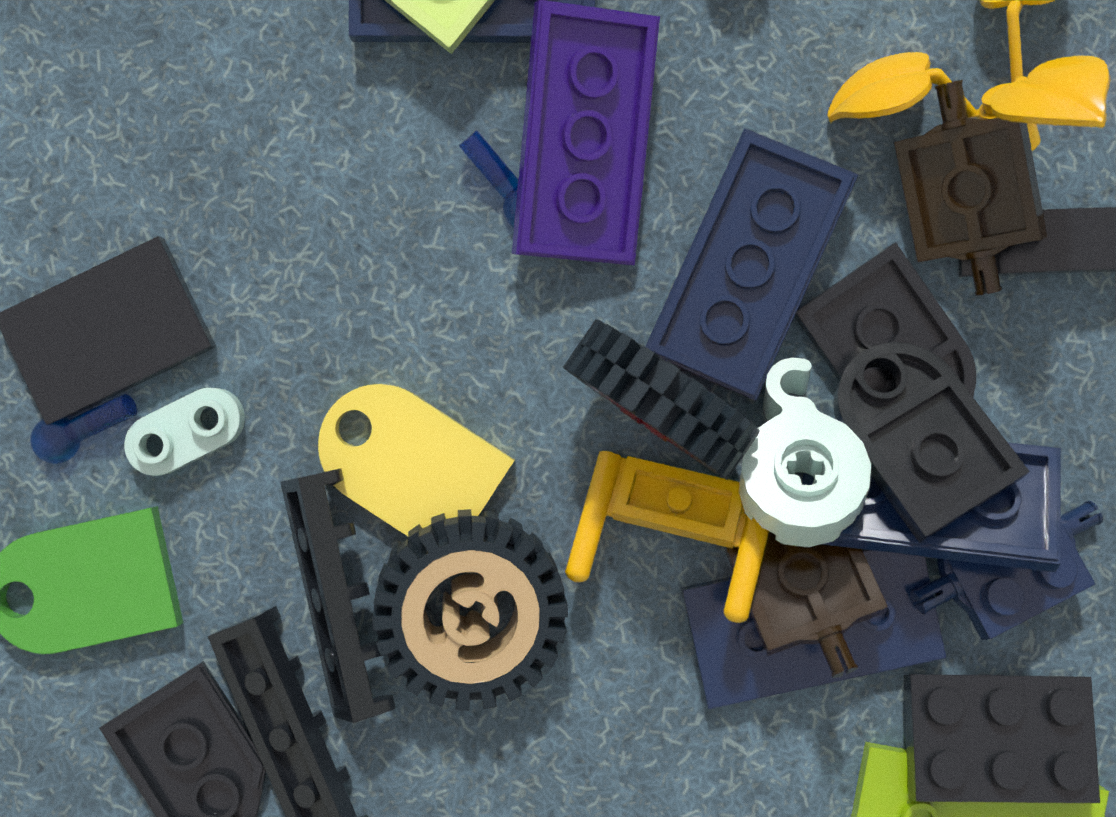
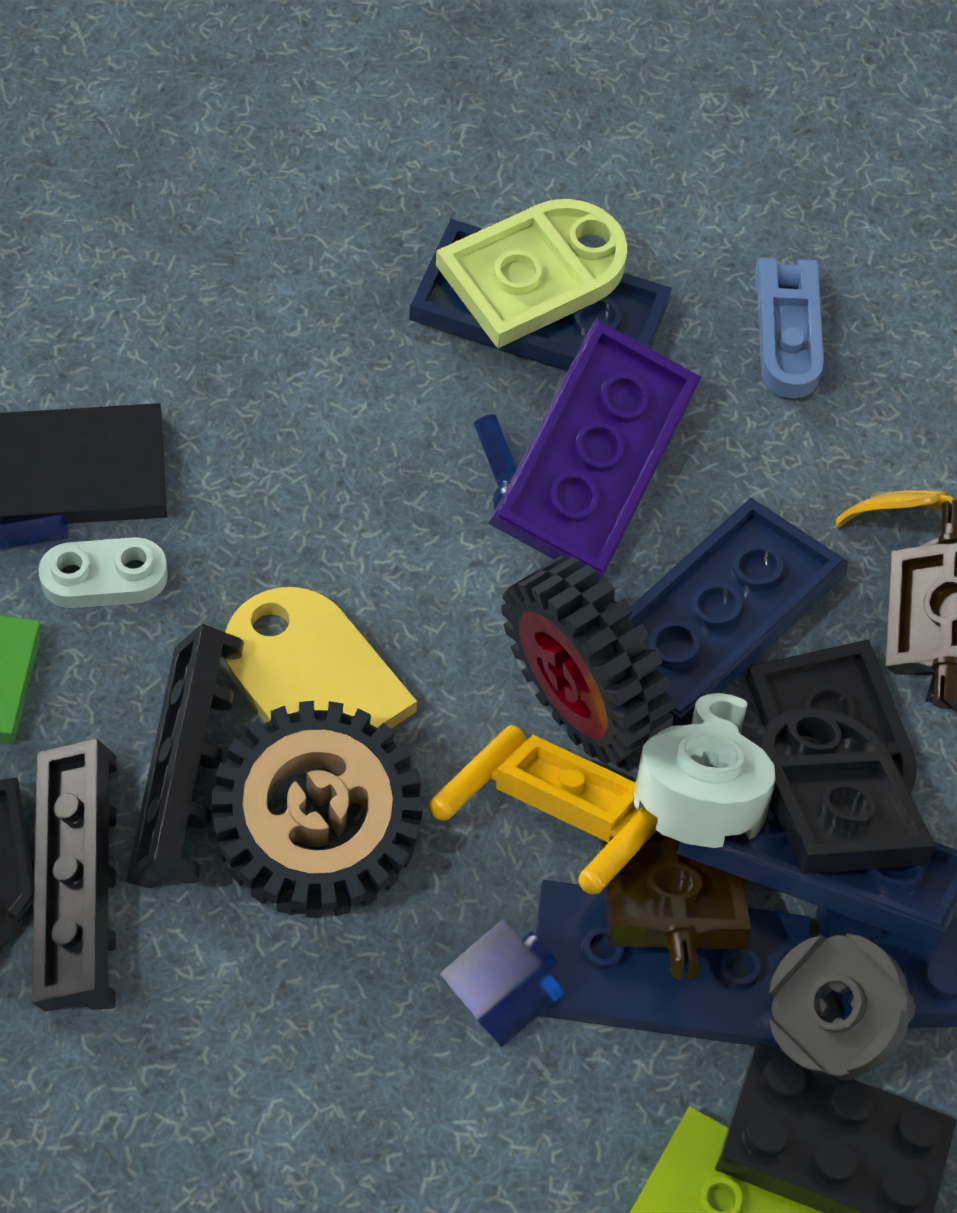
camera: 10 degrees right, 30 degrees down
(686, 710) = (504, 981): none -> clear blue brick
(987, 611) = (879, 1005): none -> dark grey plate

